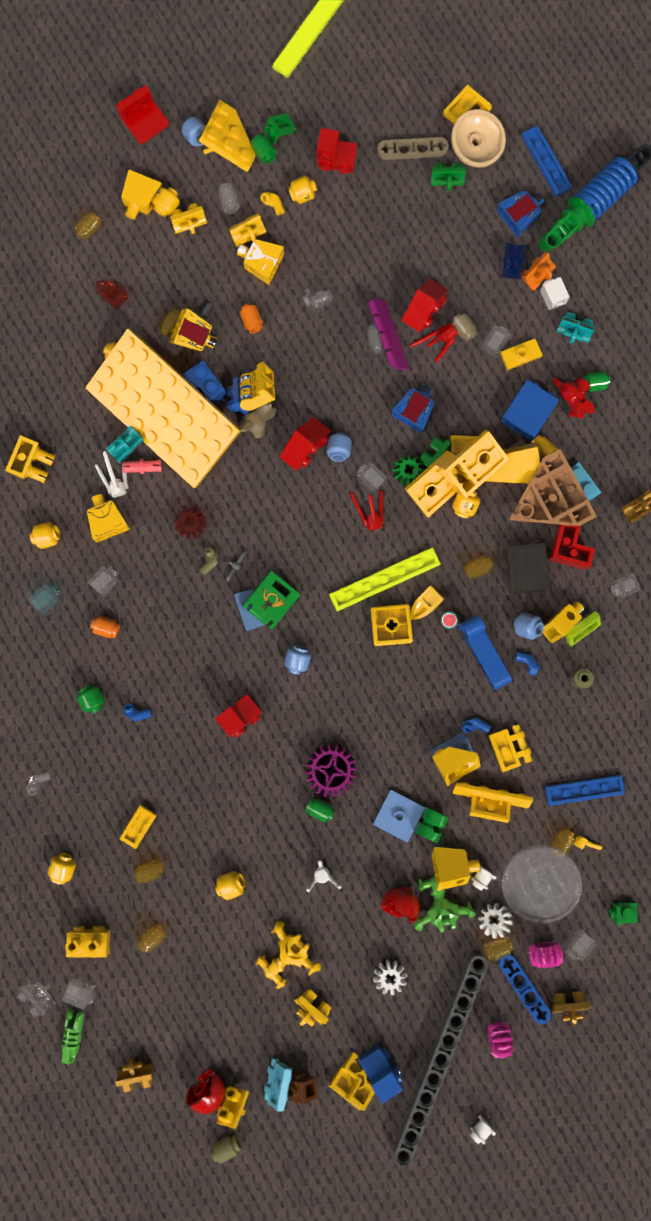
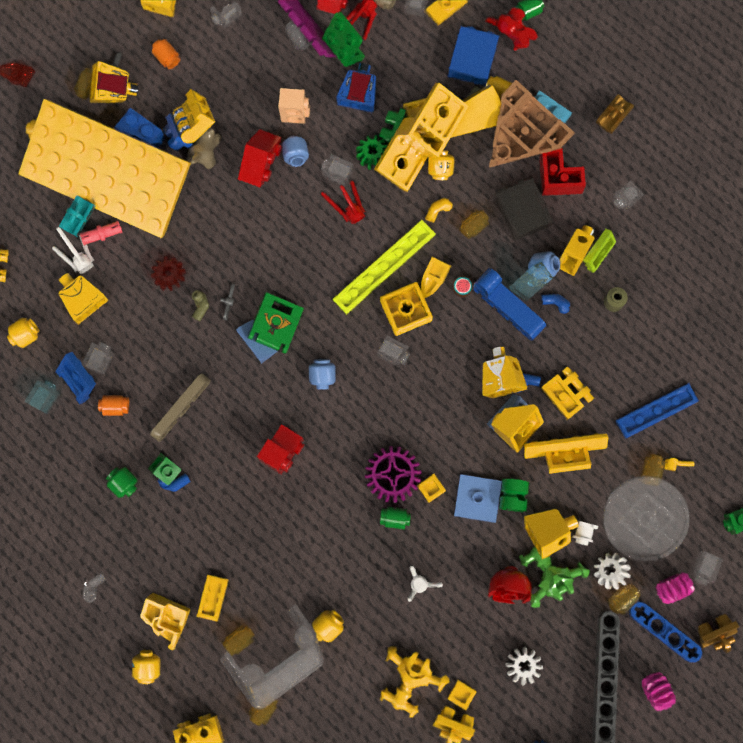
camera: 15 degrees left, 5 degrees down
(79, 591) = (76, 377): none -> blue plate
(87, 825) = (160, 613): none -> yellow slope
(131, 699) = (164, 469): none -> green bracket
(156, 926) = (264, 688): none -> clear windscreen
(163, 648) = (180, 407): none -> dark tan beam
(327, 983) = (461, 695): none -> yellow tile
(351, 405) = (293, 105): none -> light nougat brick
(361, 792) = (431, 488): none -> yellow tile
(367, 660) = (393, 352): none -> clear brick
(415, 359) = (343, 40): none -> green bracket
(451, 539) = (436, 207): none -> yellow arm
(457, 714) = (502, 375): none -> yellow torso
(512, 638) = (531, 281): none -> clear light blue slope

